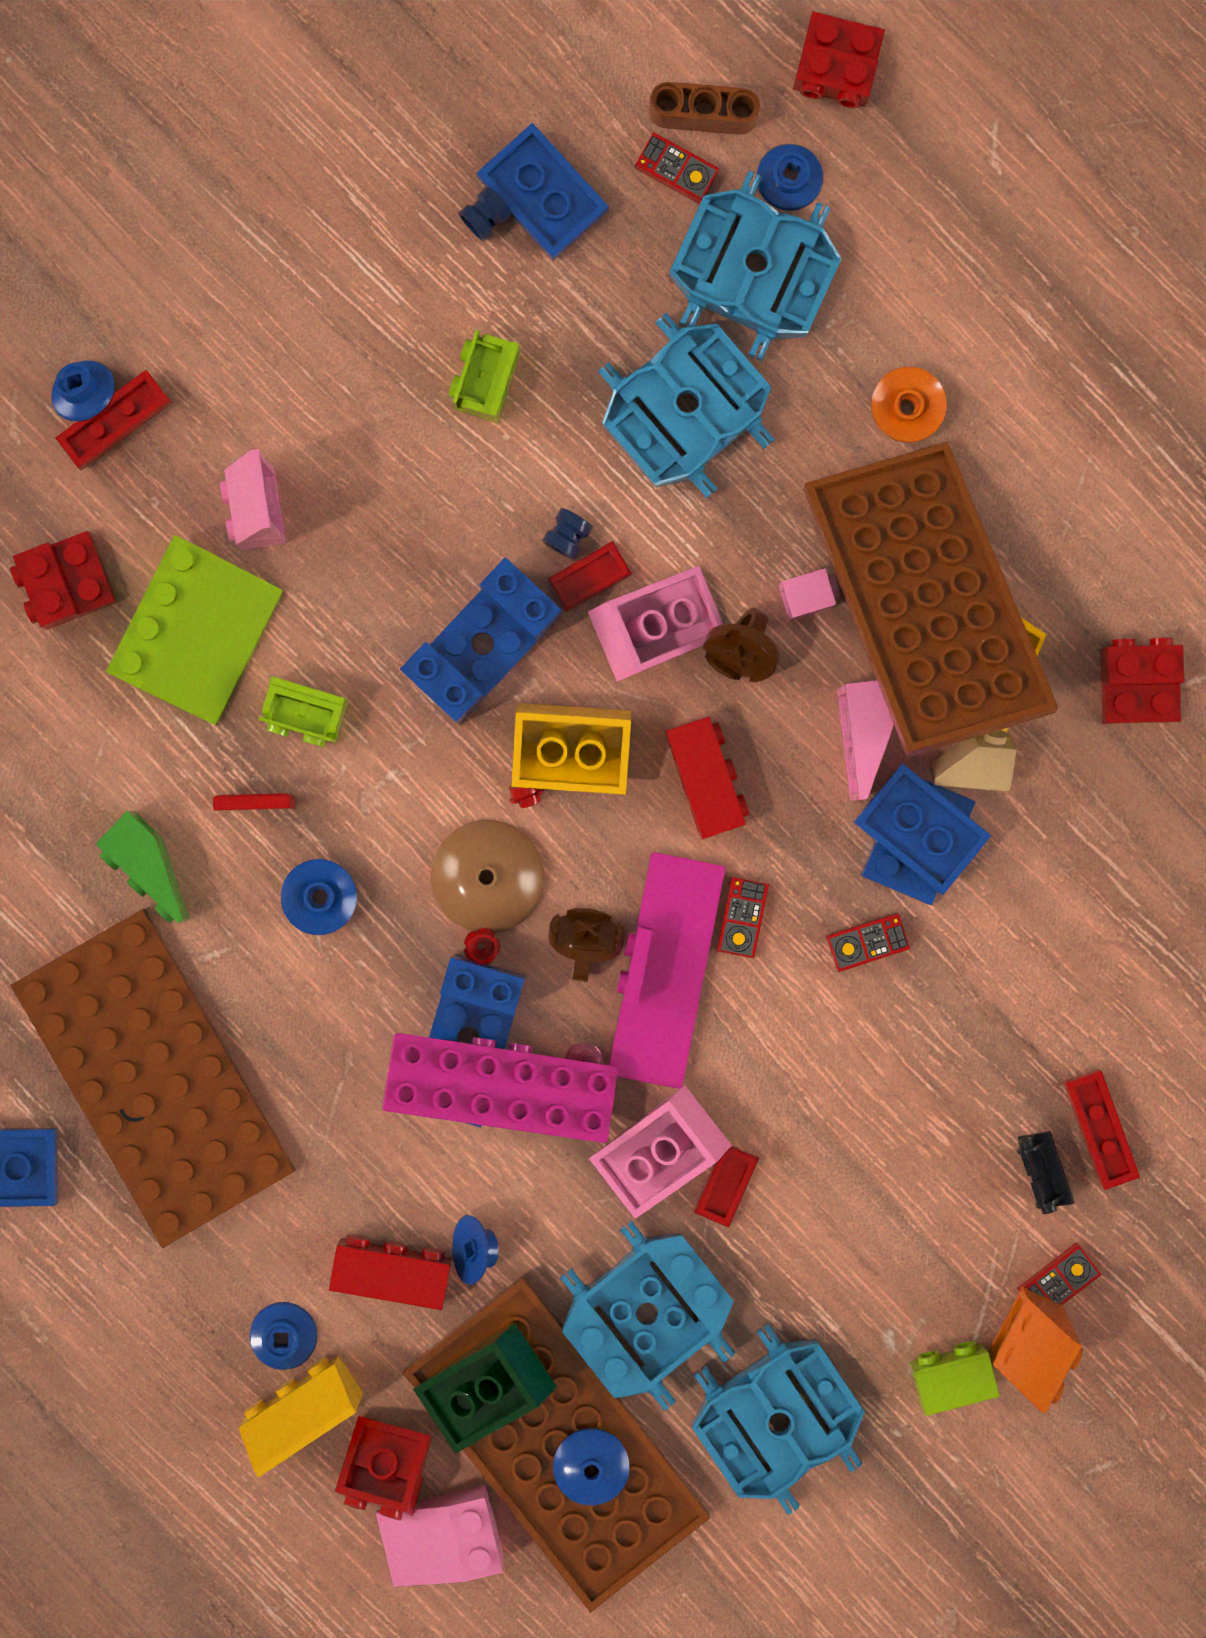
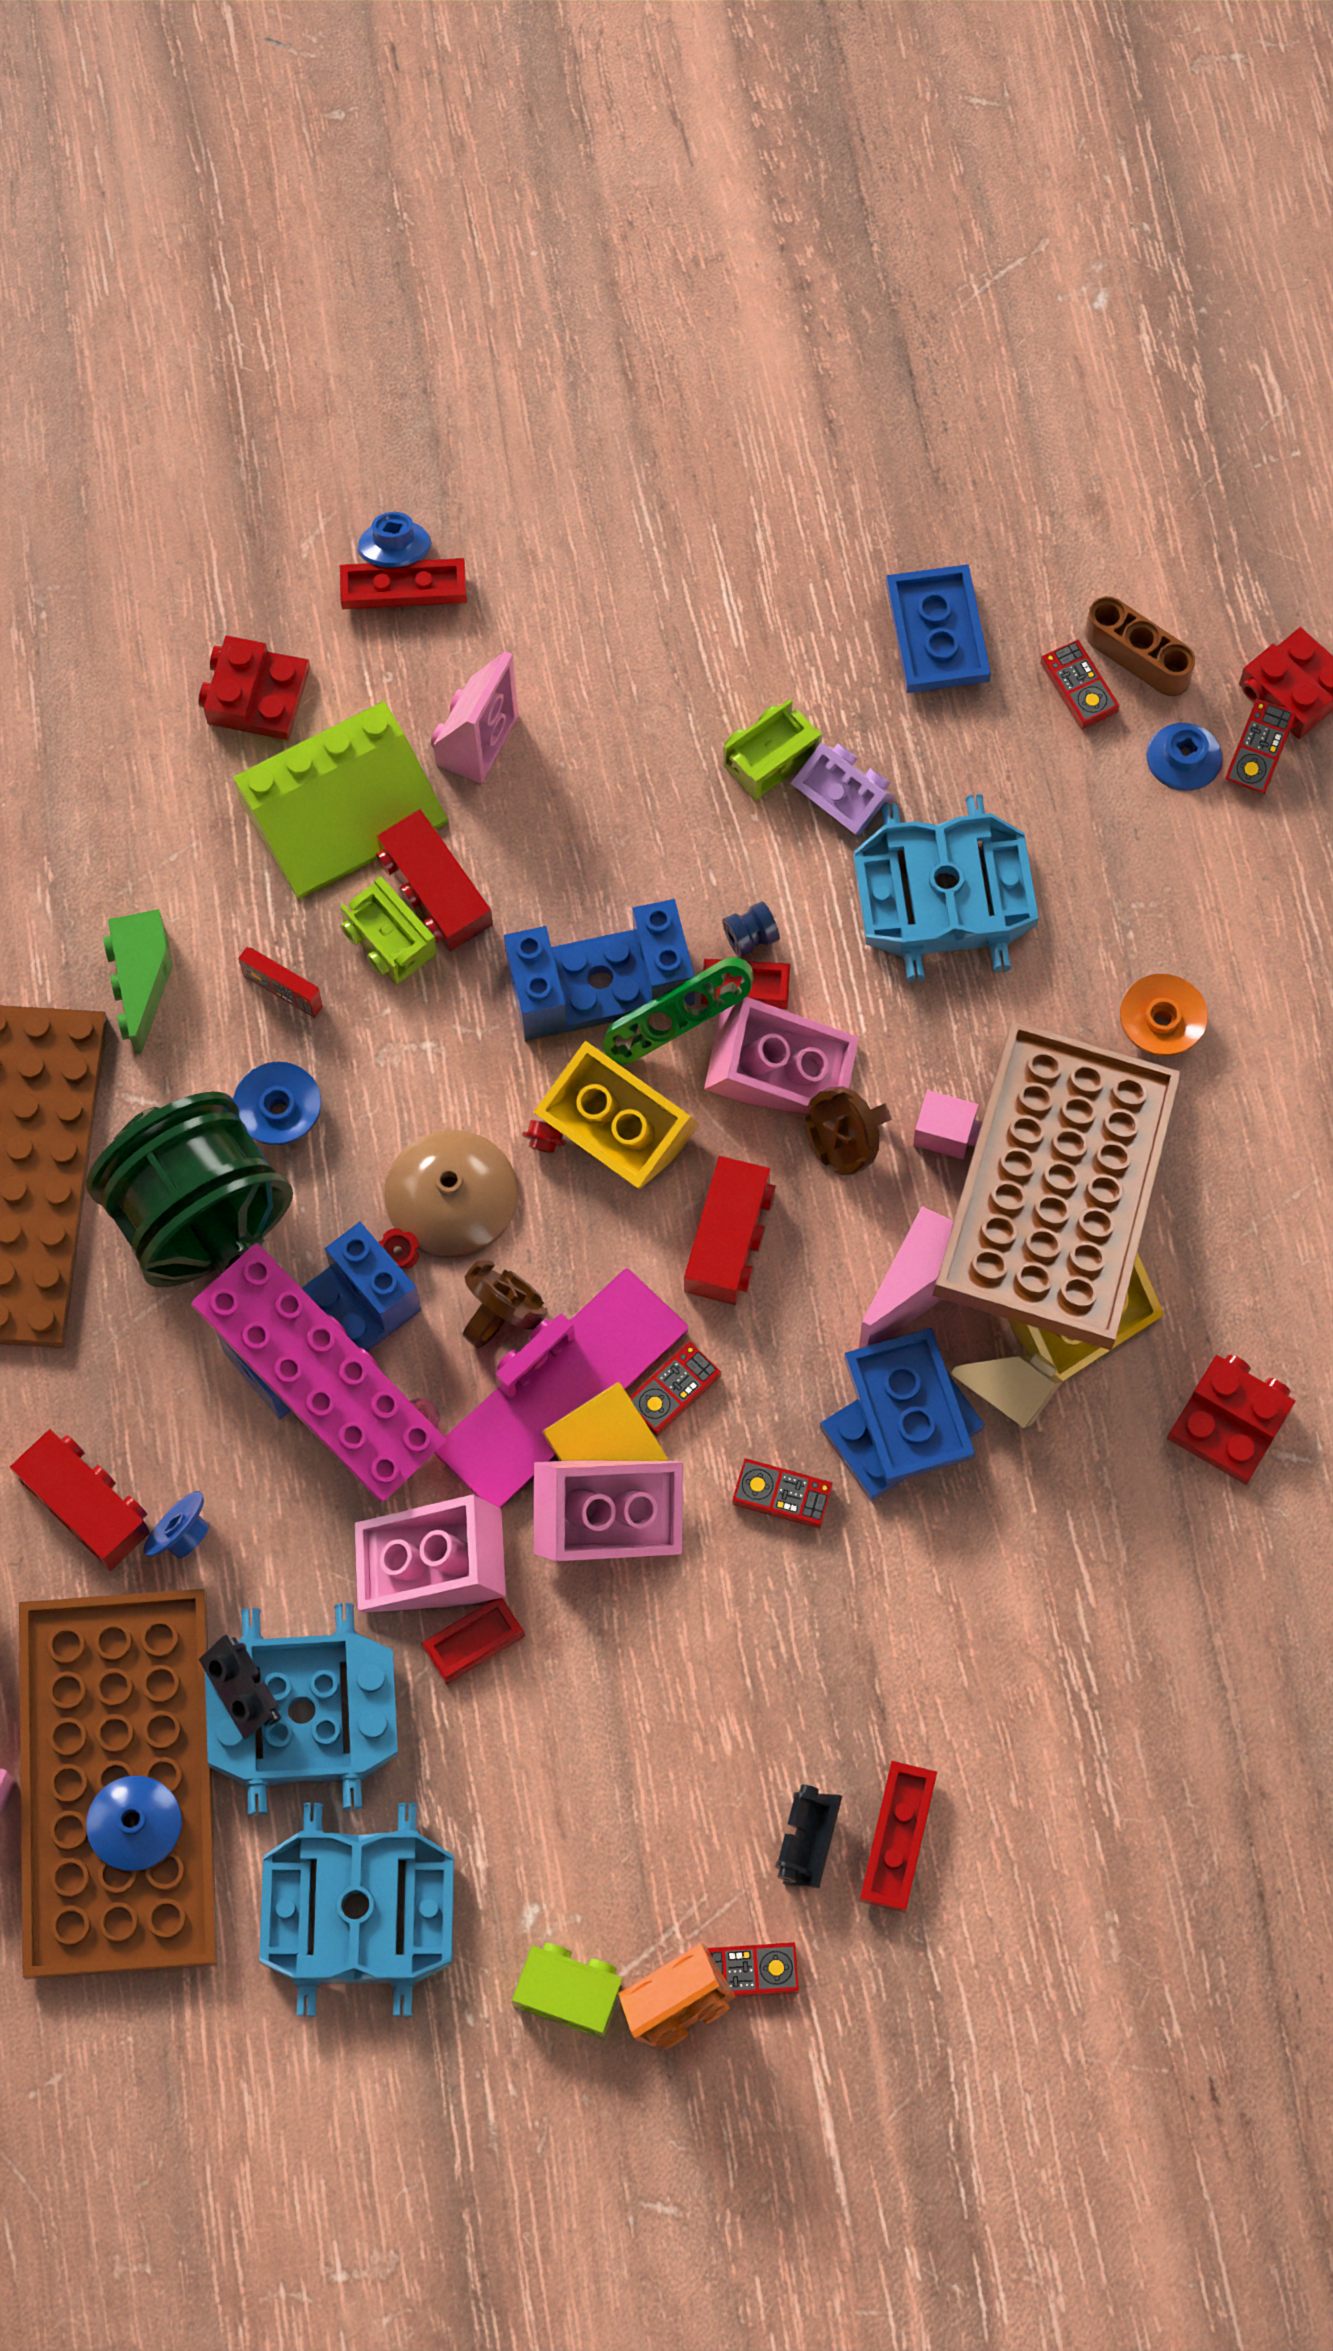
camera: 35 degrees right, 20 degrees down
(309, 651) = (433, 880): none -> red brick
(313, 1018) = (188, 1188): none -> dark green wheel
(485, 214) = (870, 614): dark blue wheel -> none
(486, 1388) = (89, 1662): dark green slope -> none
(559, 372) = (842, 787): none -> lavender bracket
(570, 642) = (681, 1015): none -> green beam
(618, 1346) = (231, 1674): none -> black hinge
(725, 992) = (604, 1431): none -> yellow tile
(746, 294) = (1051, 794): dark azure piece -> none
(760, 1041) = (607, 1509): none -> bright pink slope
(846, 136) = (1260, 746): none -> tile

